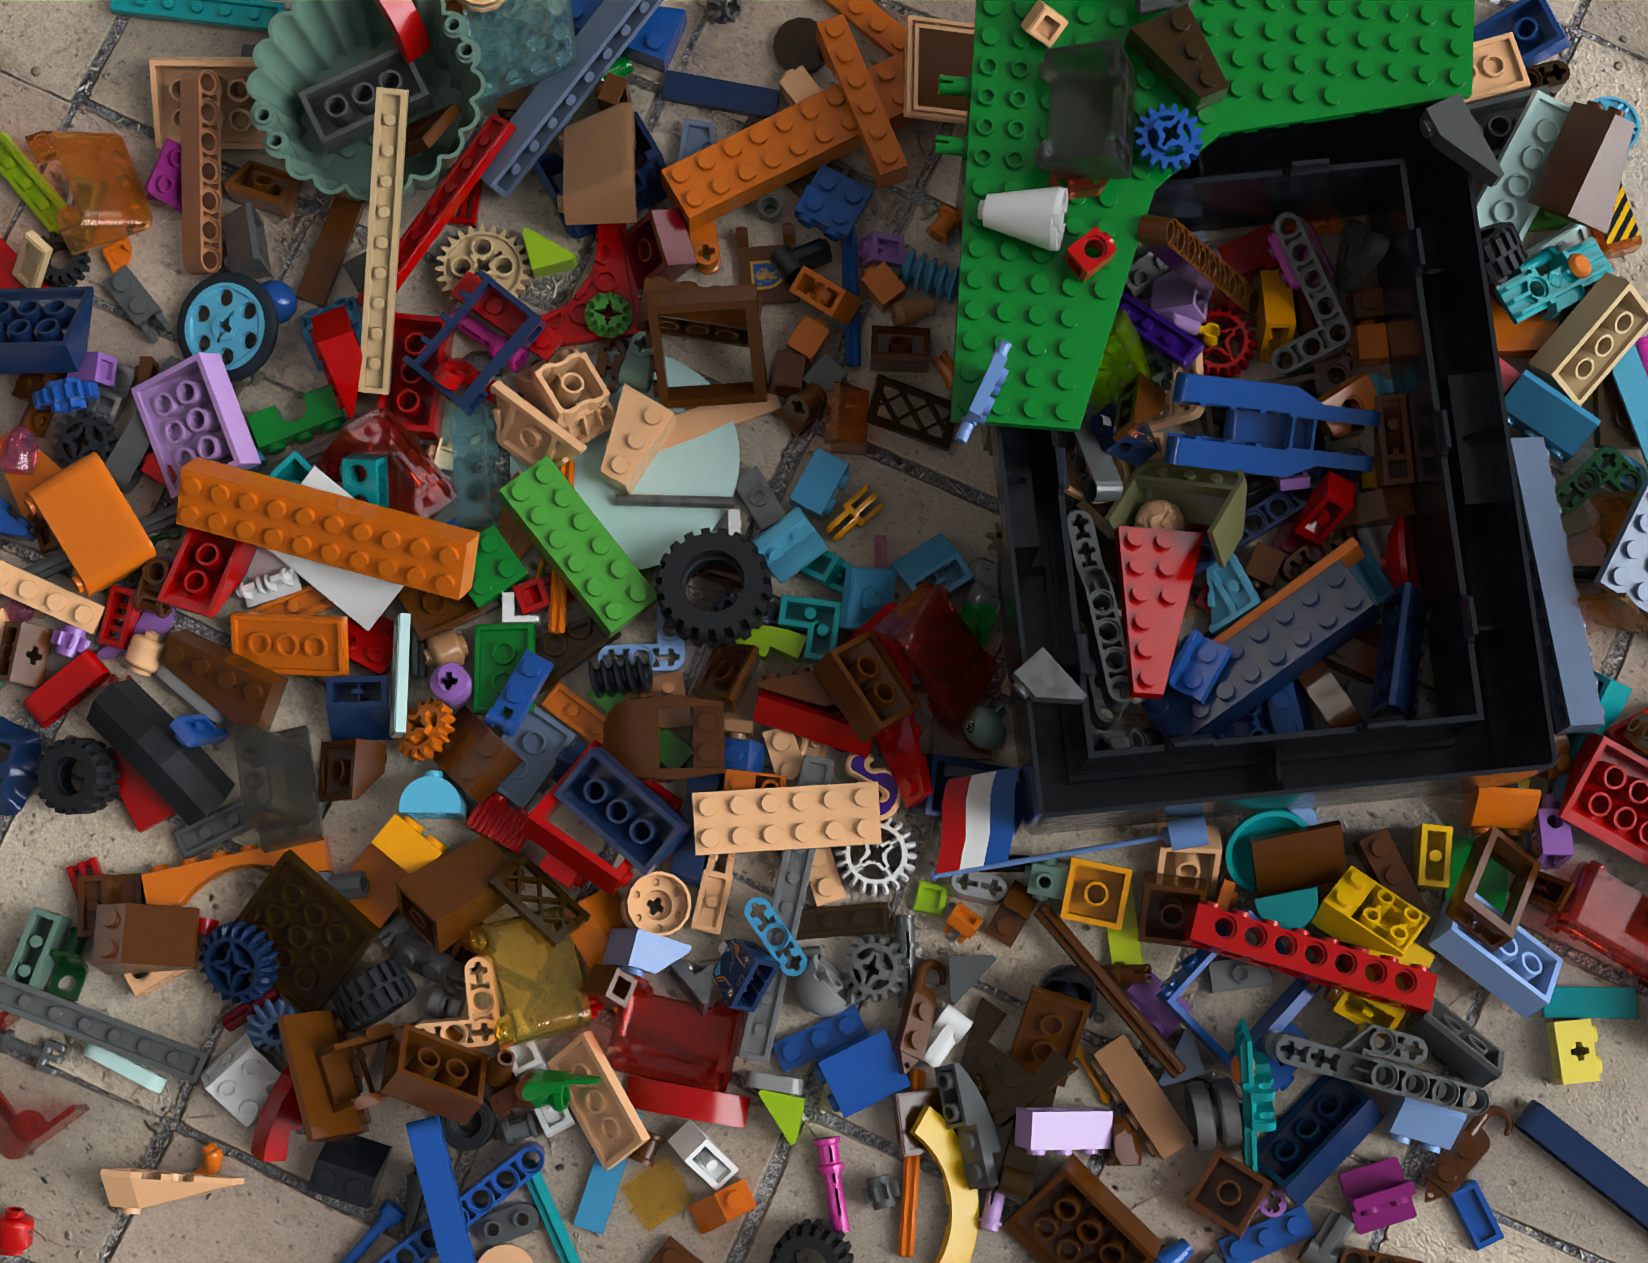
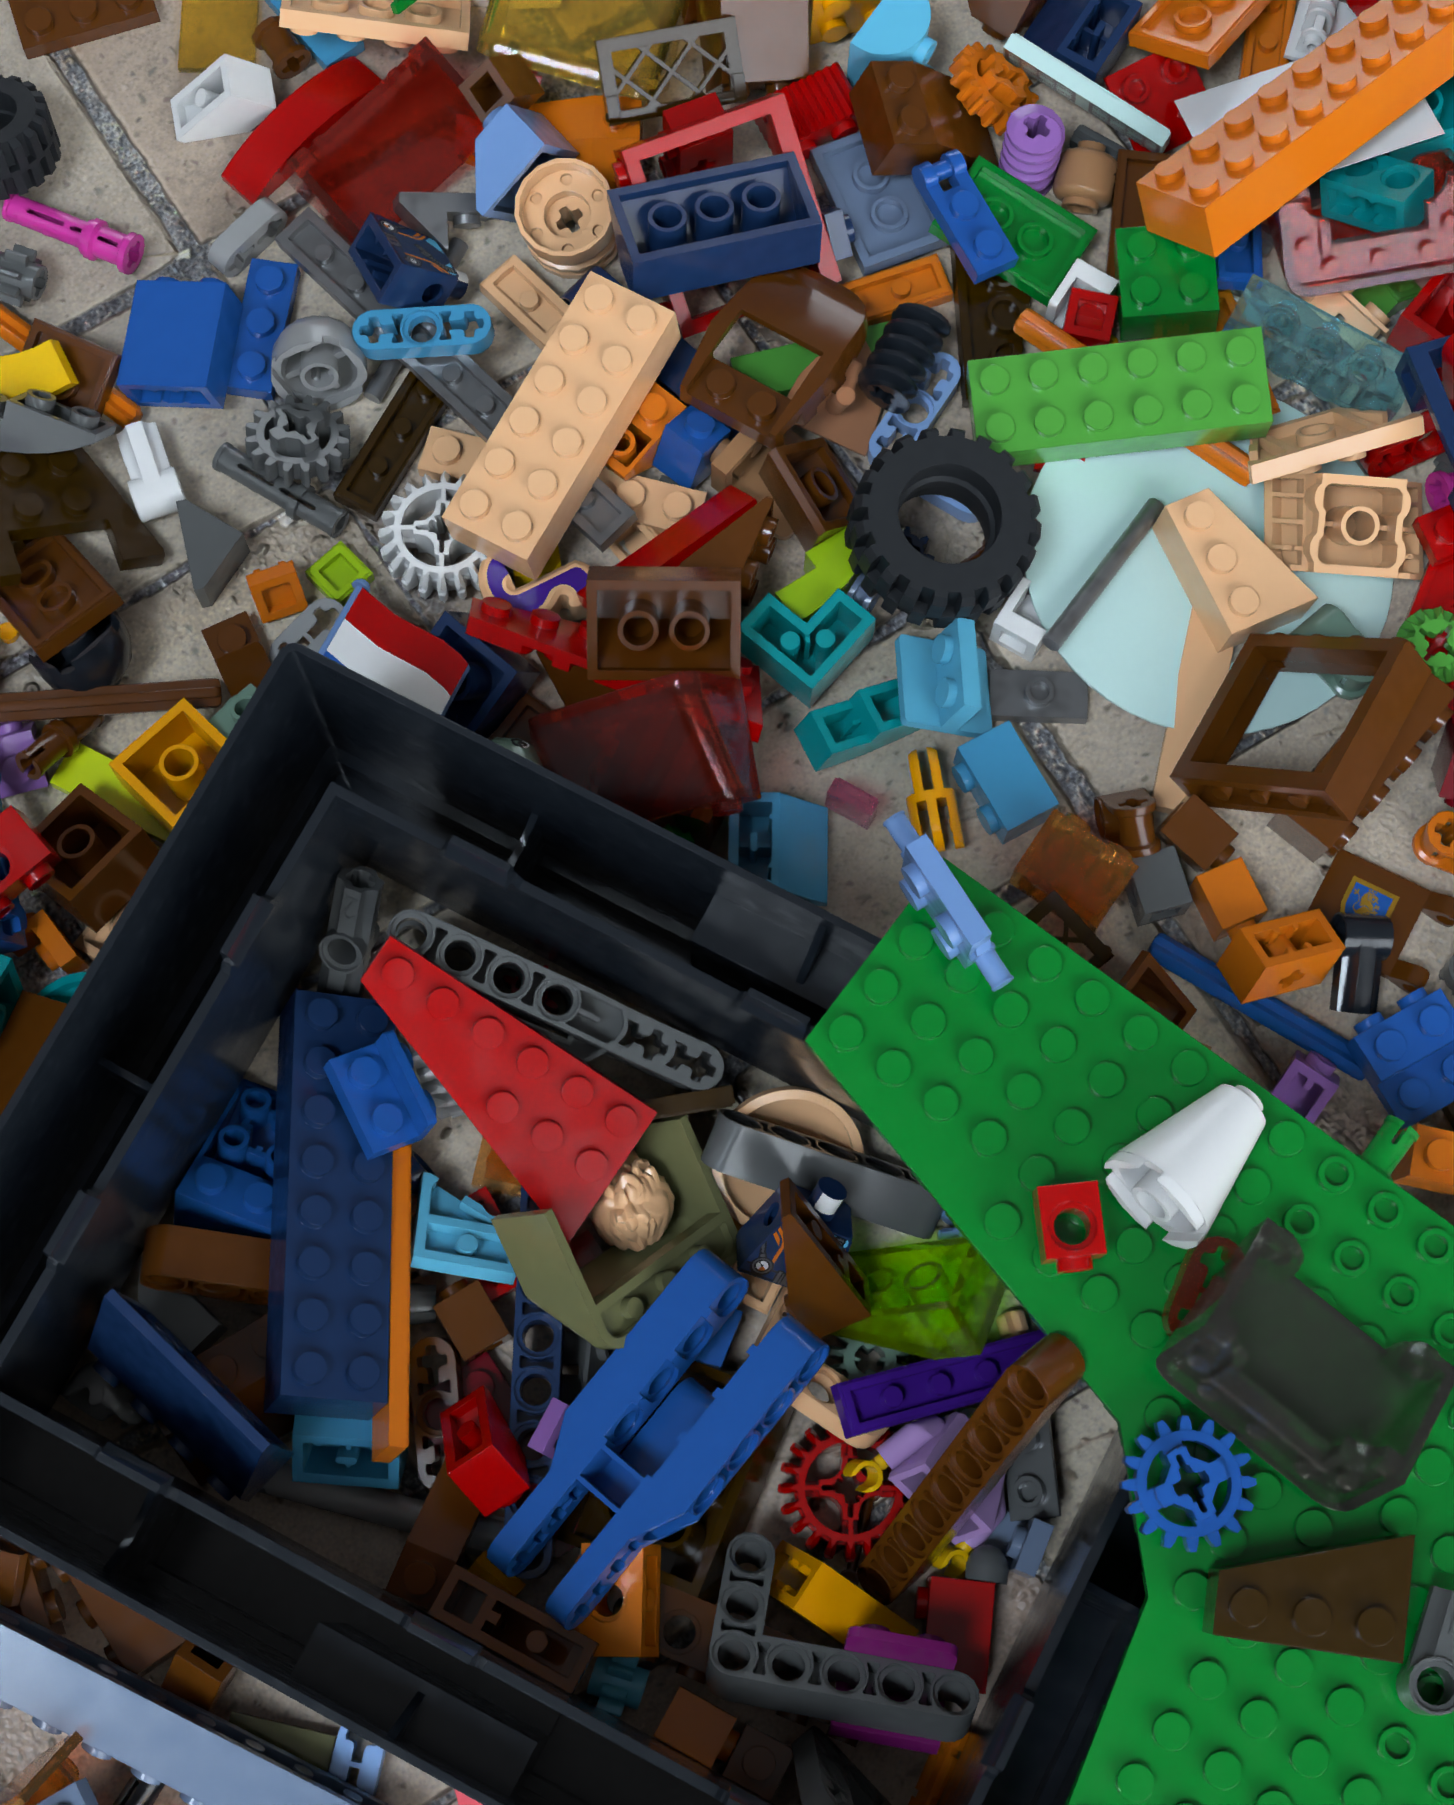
camera: 120 degrees right, 5 degrees down
(603, 364) = (1360, 607): reddish brown beam -> none
(722, 1206) = (145, 96): orange slope -> none
(786, 1111) = (196, 222): lime slope -> none
(865, 593) = (800, 734): dark azure tile -> none
(882, 286) = (1251, 1050): orange brick -> none
(917, 1017) = (195, 446): reddish brown plate -> none
(1046, 681) = (465, 760): flat silver slope -> none
(1400, 554) = (329, 1522): red dish -> none

